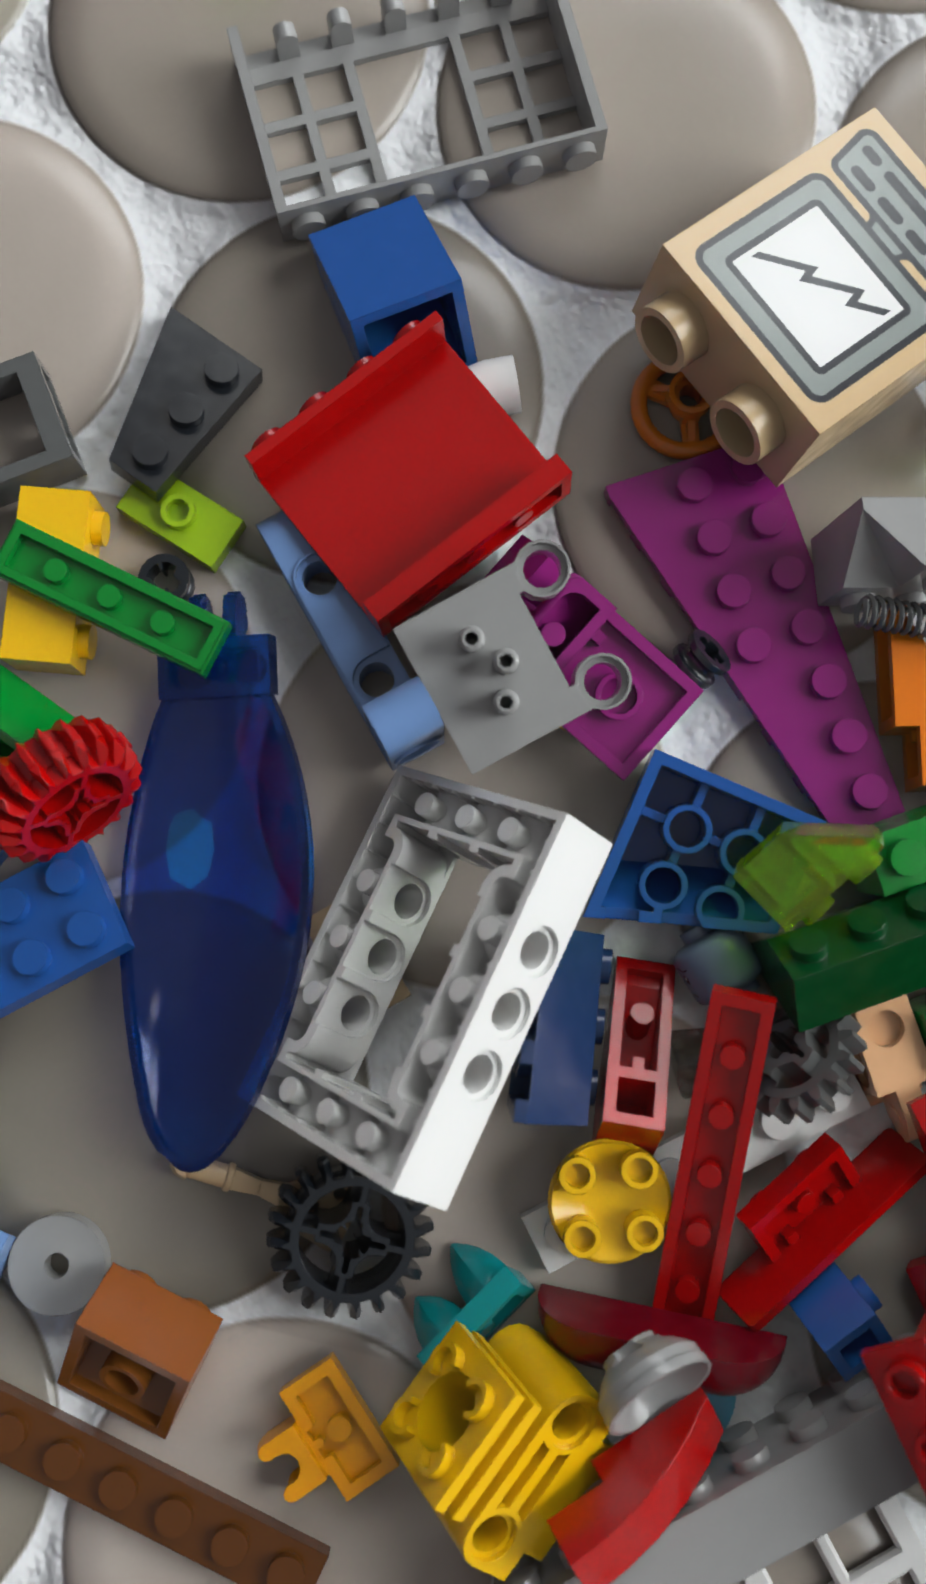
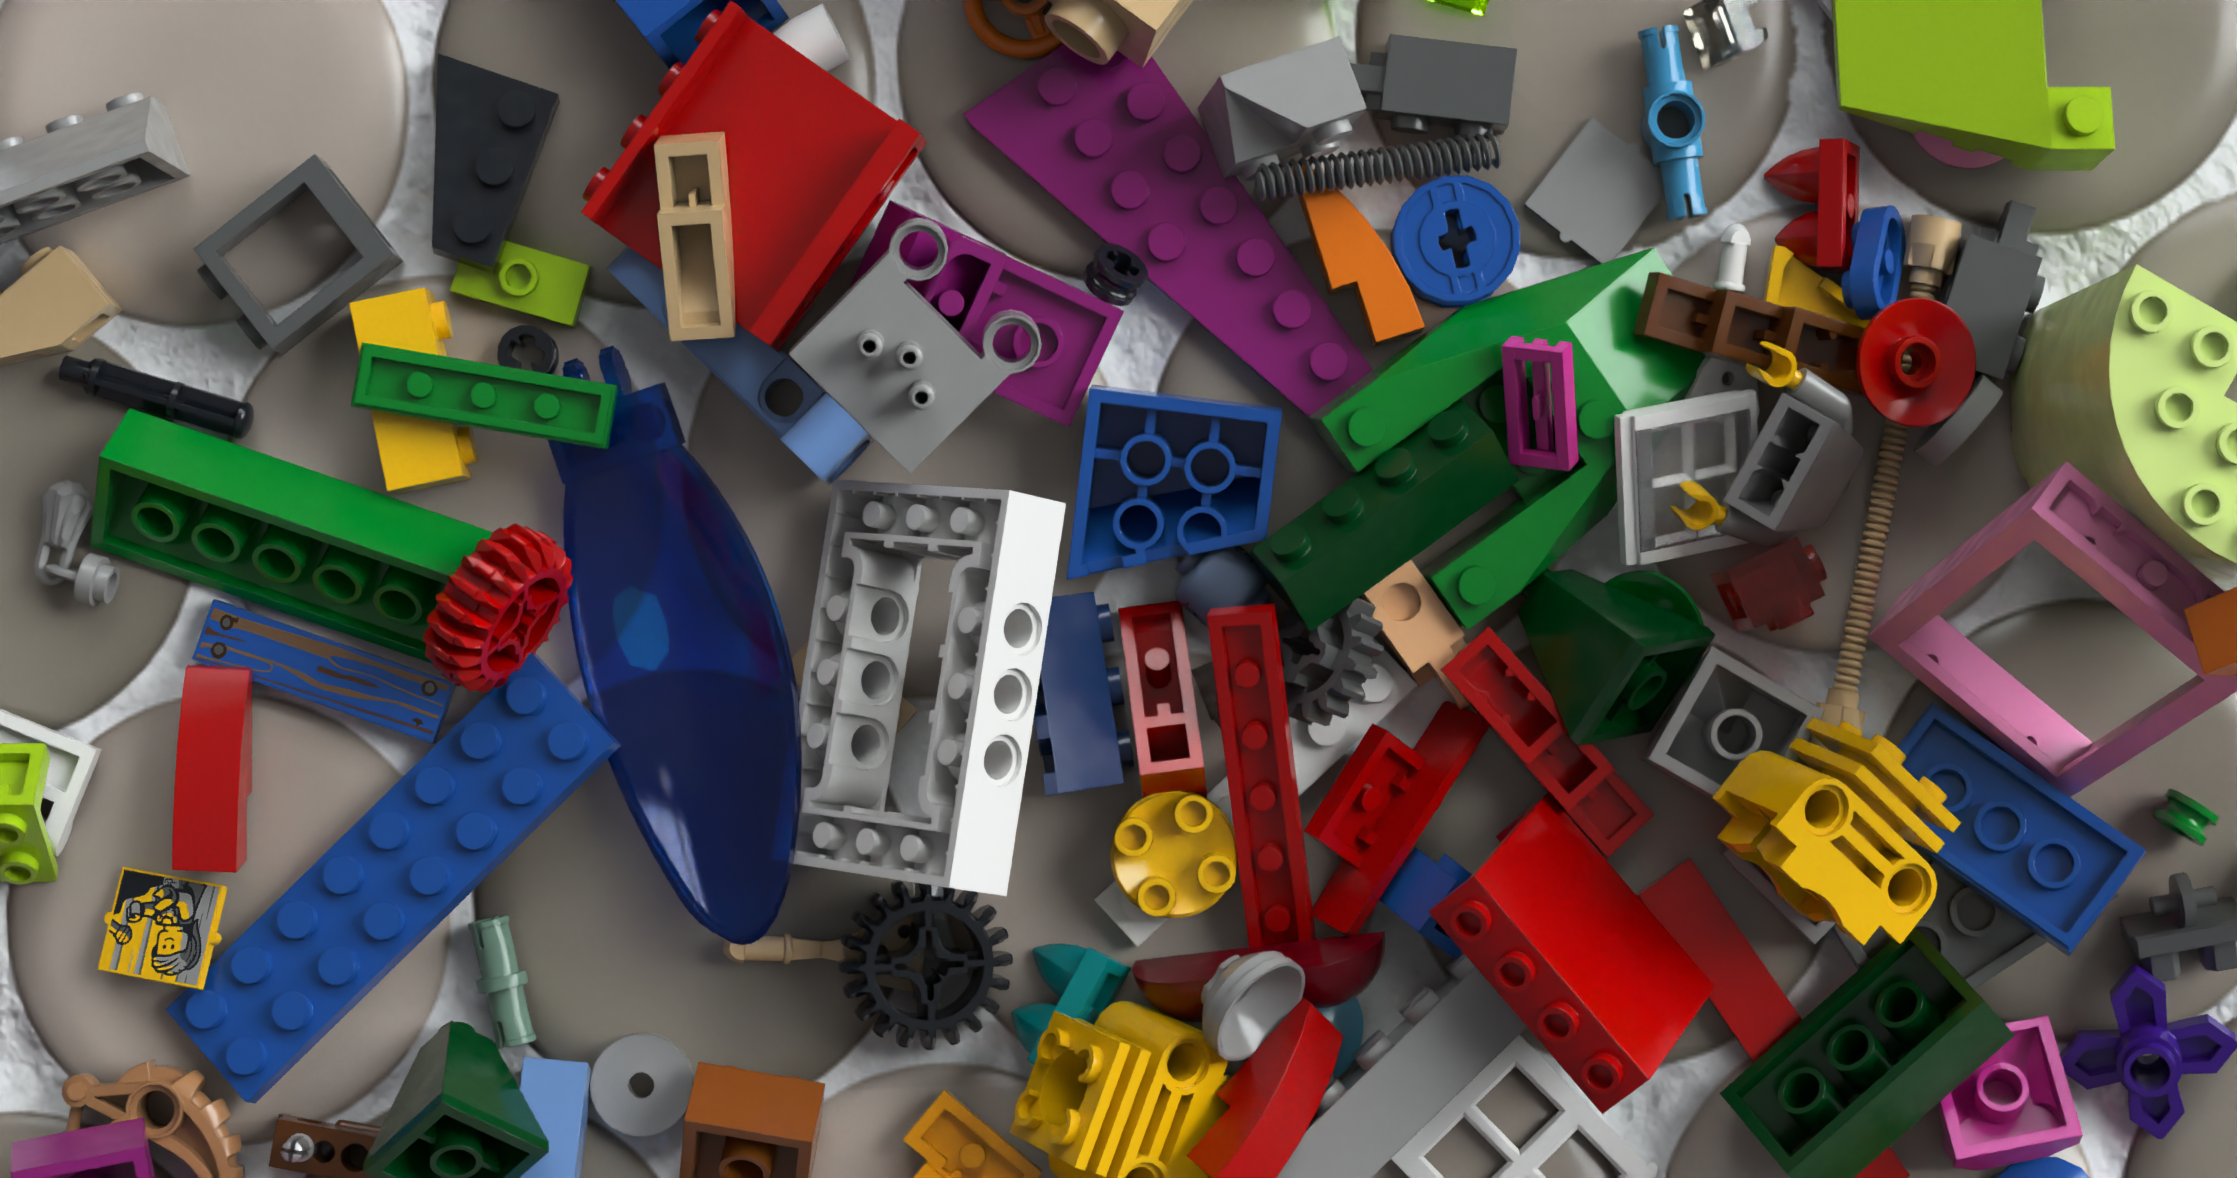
camera: 15 degrees left, 5 degrees up
(341, 509) = (696, 235): none -> tan slope
(804, 864) = (1262, 464): clear neon green slope -> none

